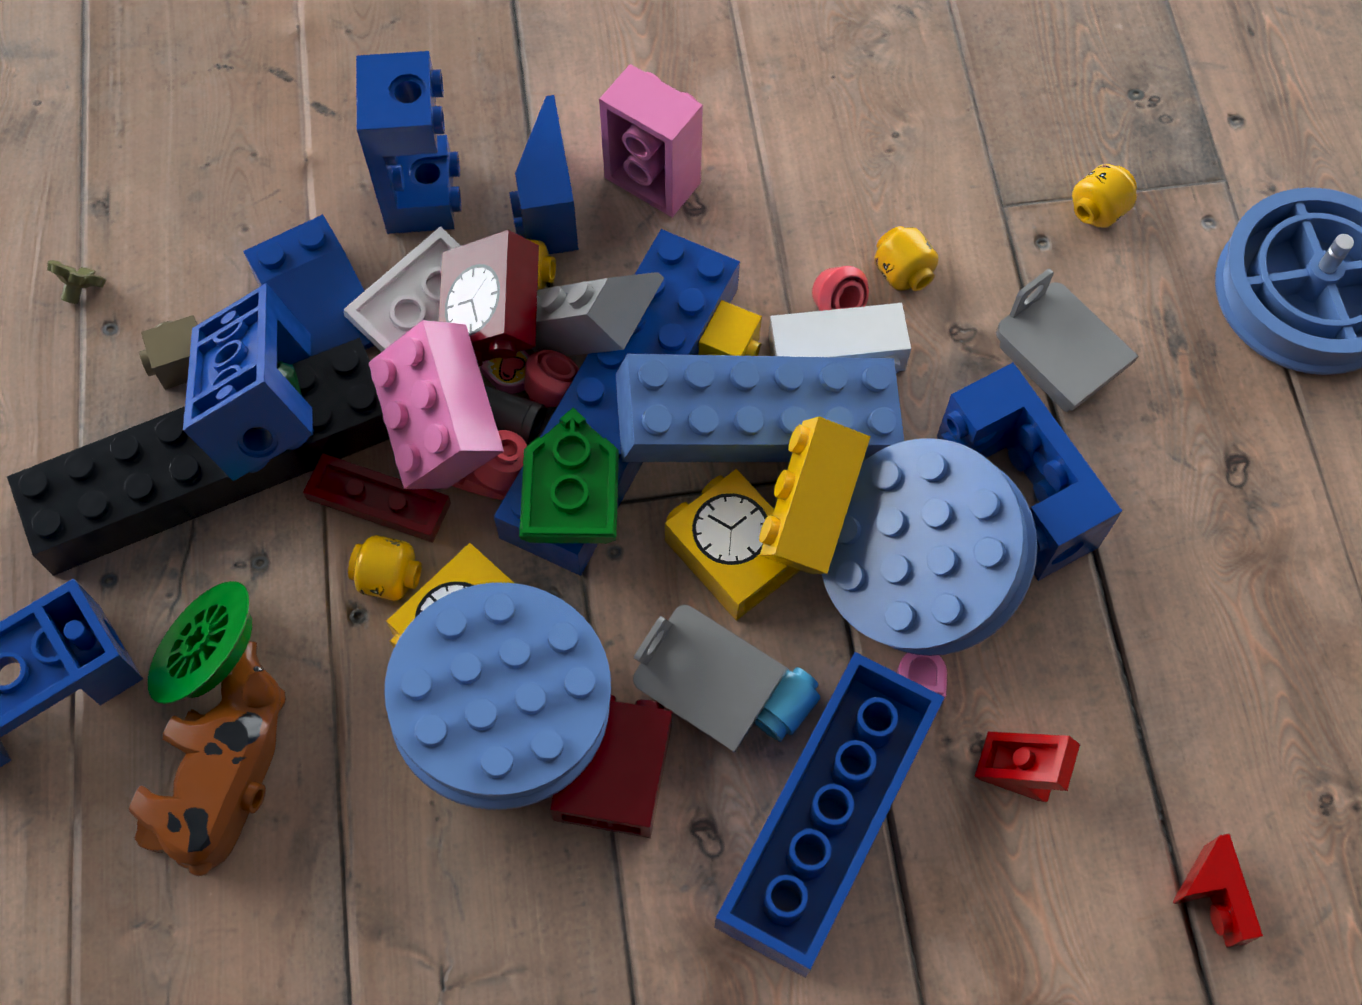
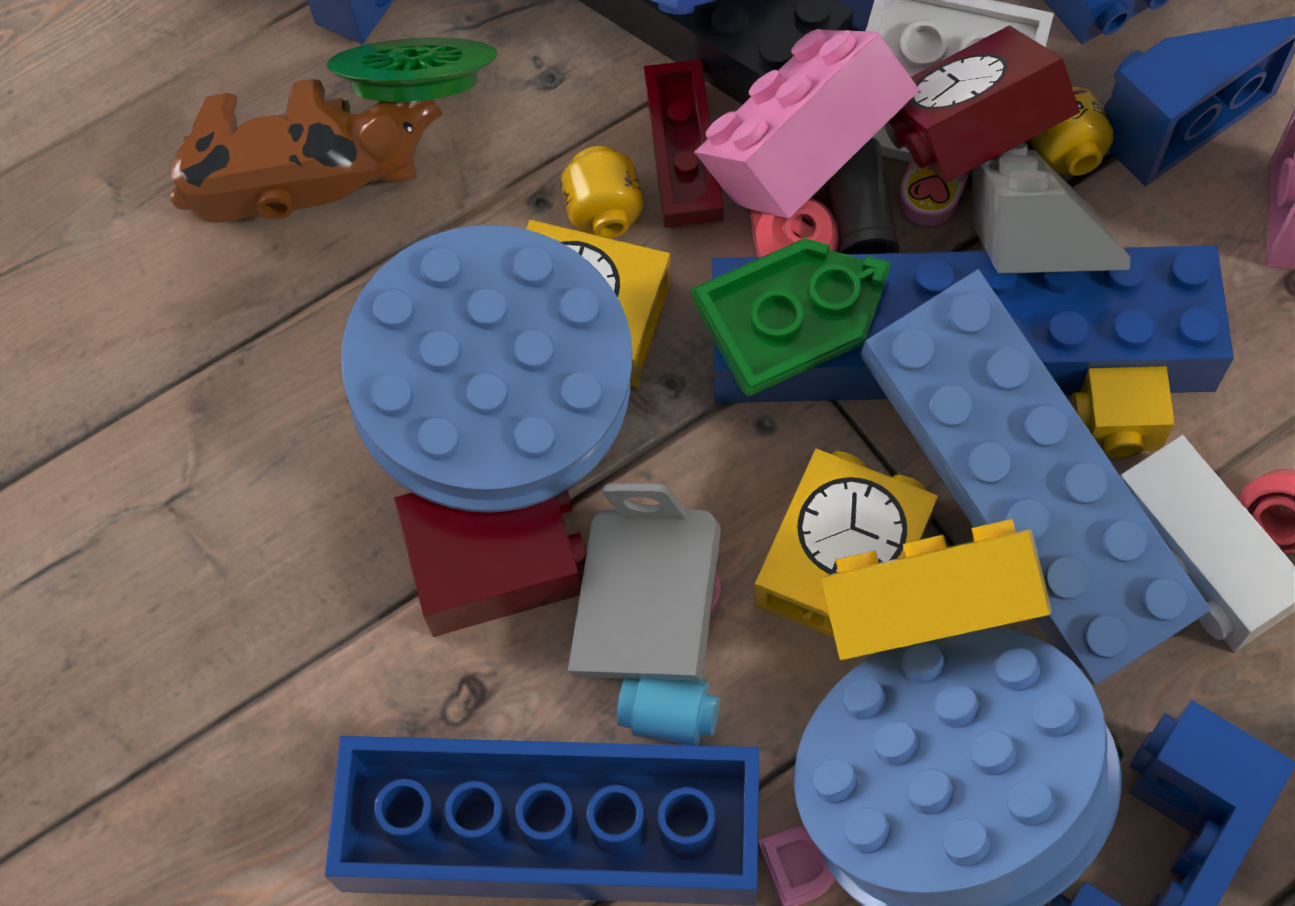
camera: 70 degrees right, 0 degrees up
(548, 376) = (938, 225): coral cone -> none

